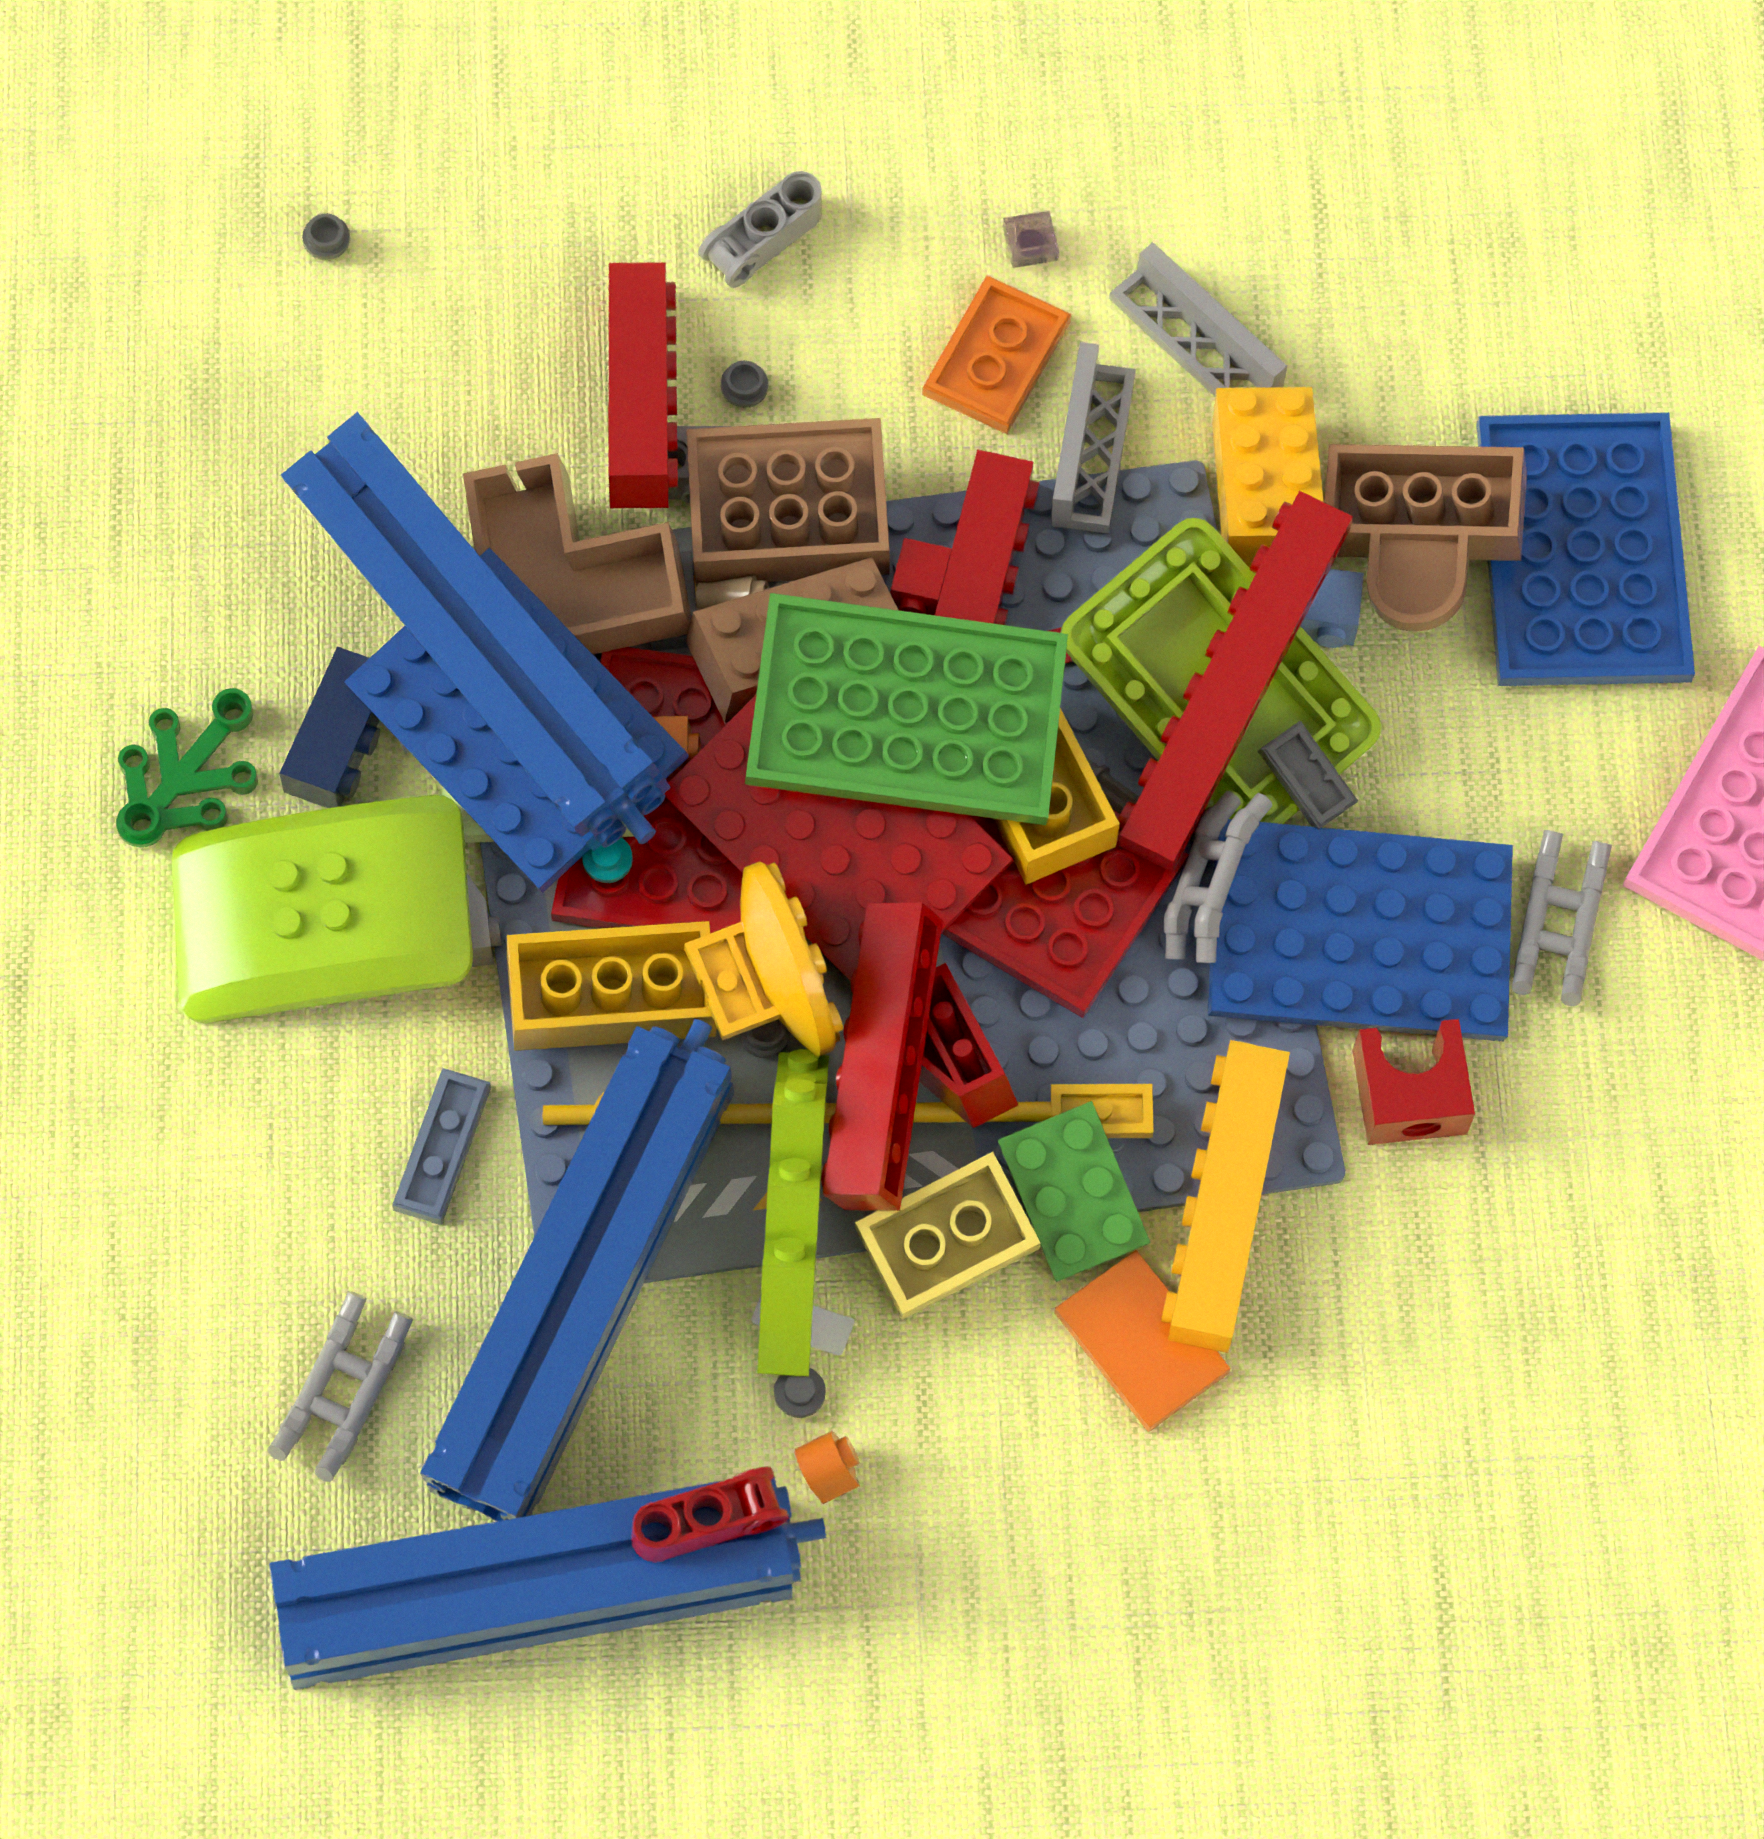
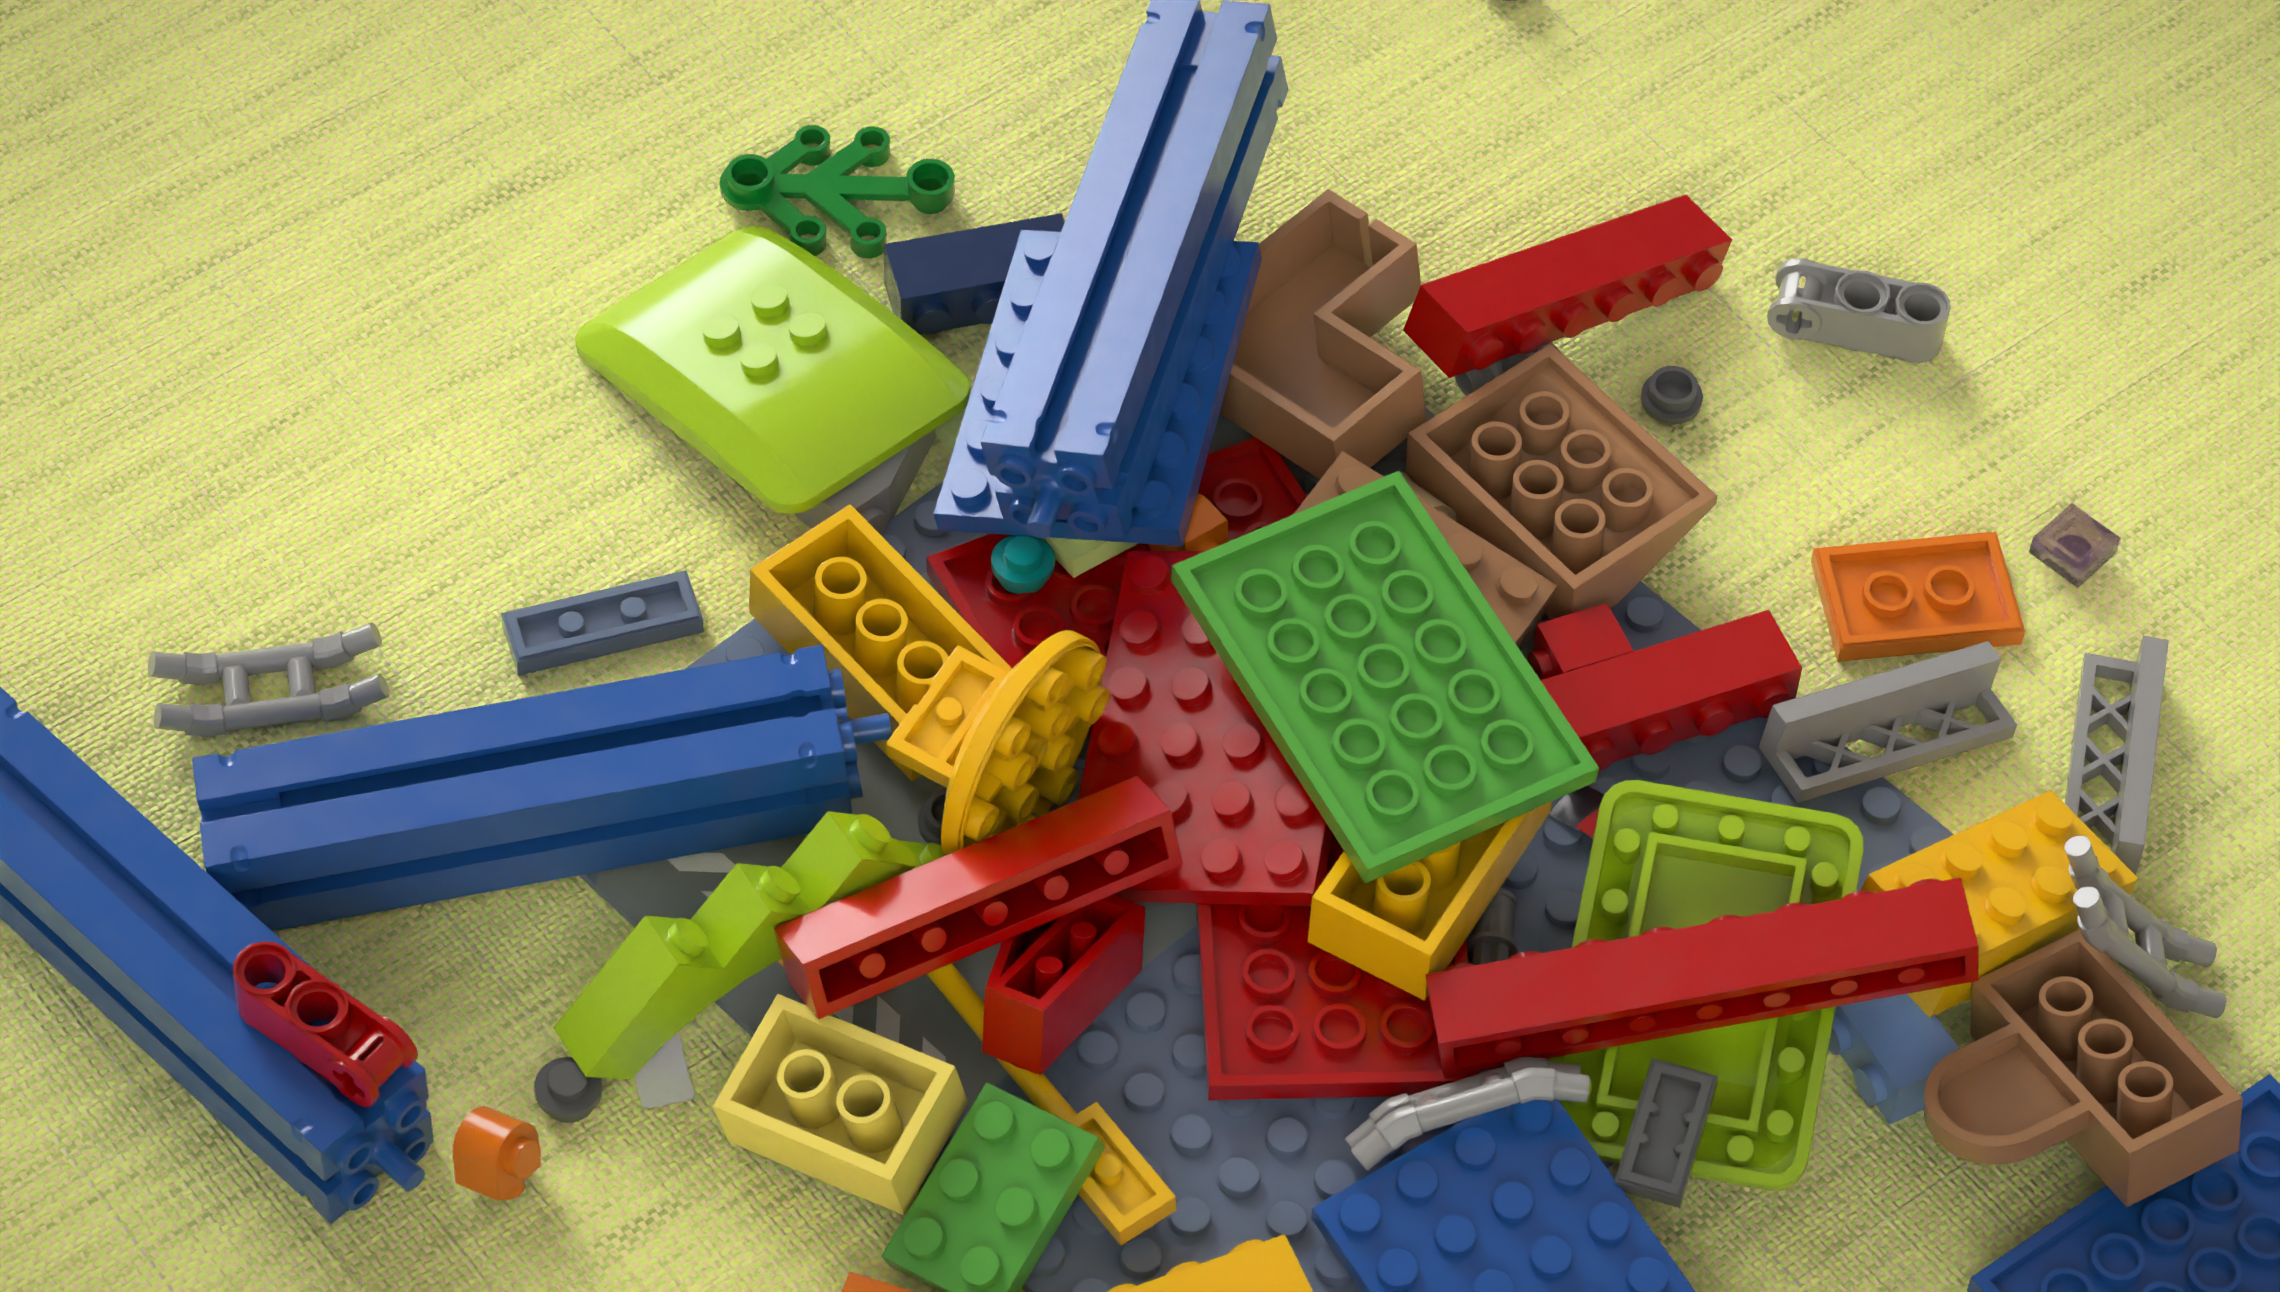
camera: 55 degrees right, 15 degrees down
(1350, 421) = (2104, 921): none -> light grey piece

